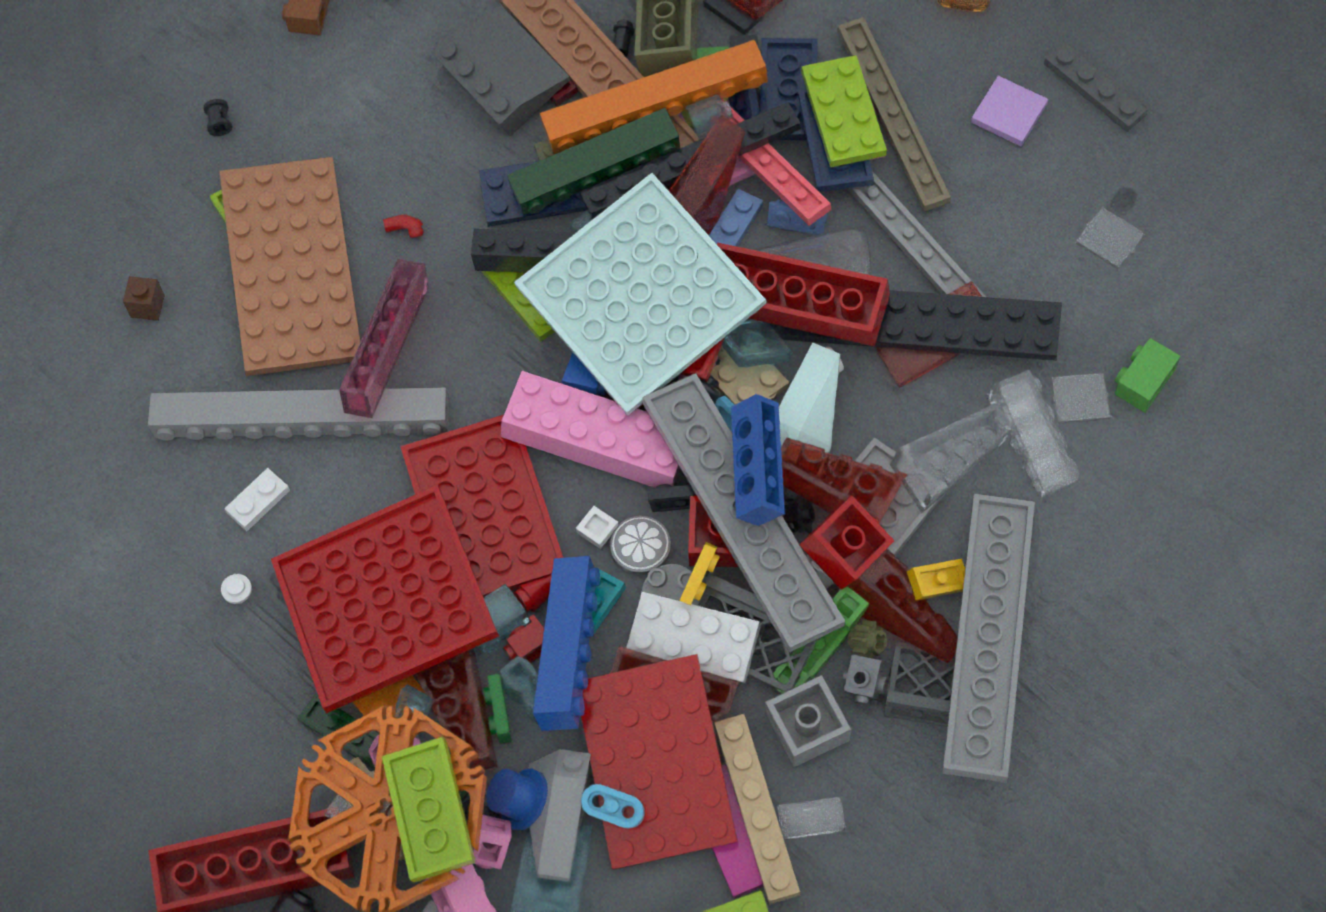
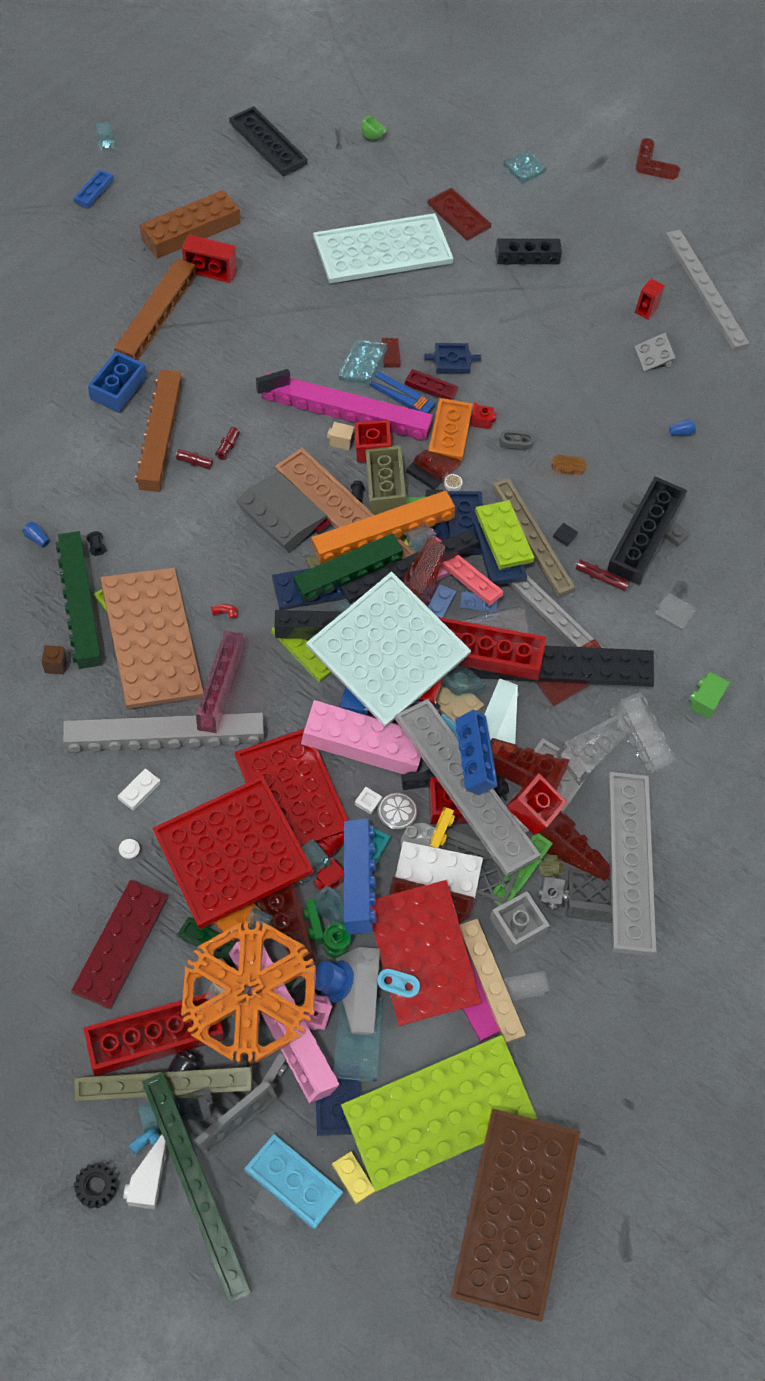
camera: 15 degrees left, 5 degrees down
(128, 101) = (34, 532): none -> blue cone
(186, 206) = (79, 600): none -> dark green brick
(214, 730) = (119, 944): none -> dark red plate
(428, 809) = (279, 990): lime plate -> none
(527, 739) = (336, 940): none -> green wheel
(775, 24) = (453, 482): none -> tile
(937, 579) = (592, 827): yellow plate -> none
(946, 110) = (565, 534): none -> black tile
(967, 162) = (607, 577): none -> dark red pin
(1009, 110) = (603, 534): lavender tile -> none
(1074, 106) = (647, 530): none -> black brick
(1080, 398) = (668, 710): clear piece -> none

